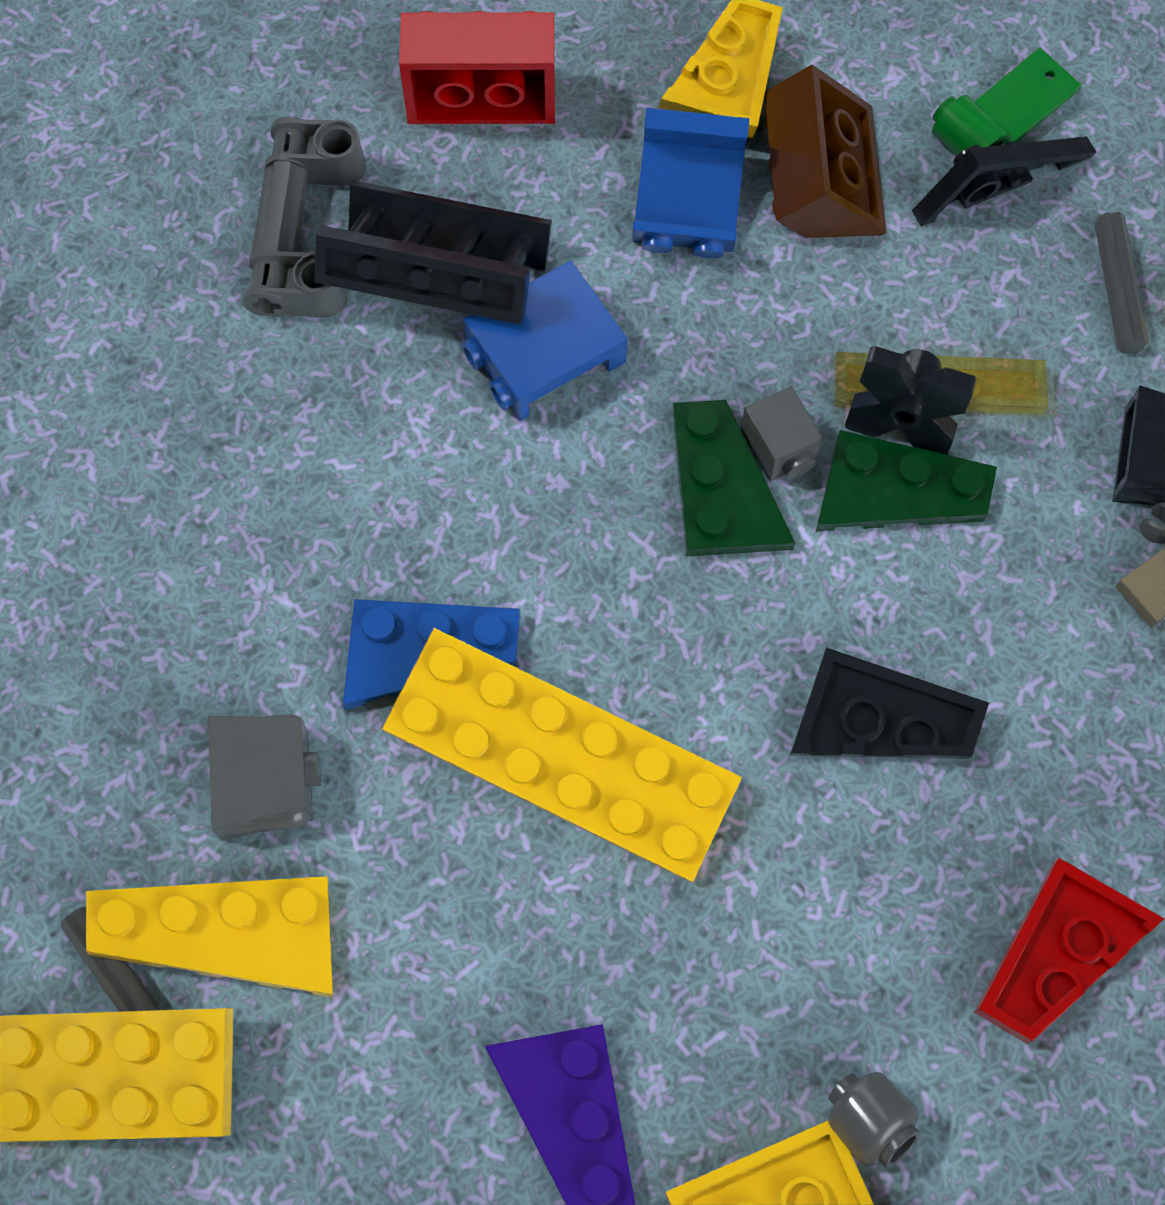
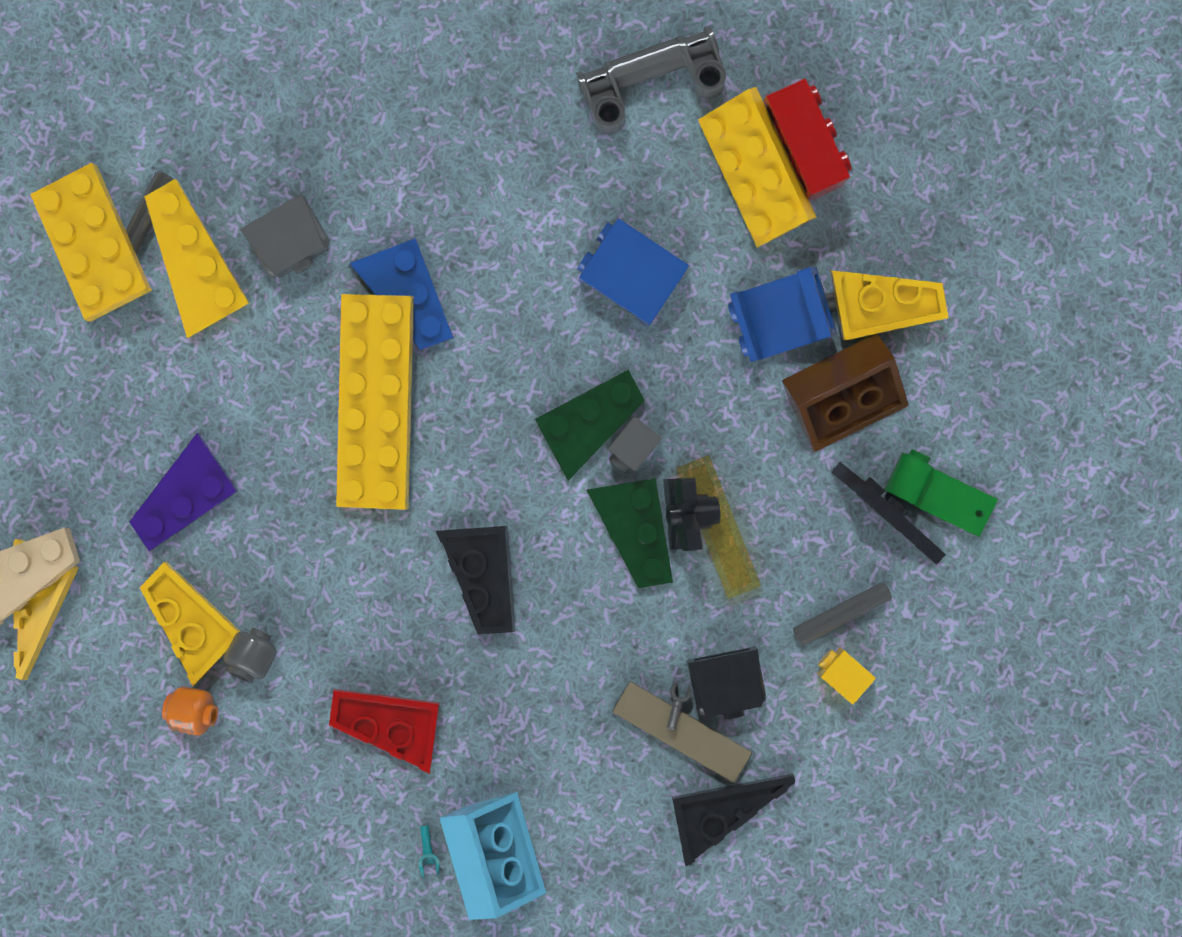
camera: 65 degrees right, 20 degrees up
(434, 252) = (628, 184): black fence -> none
(483, 137) = (756, 167): none -> yellow plate

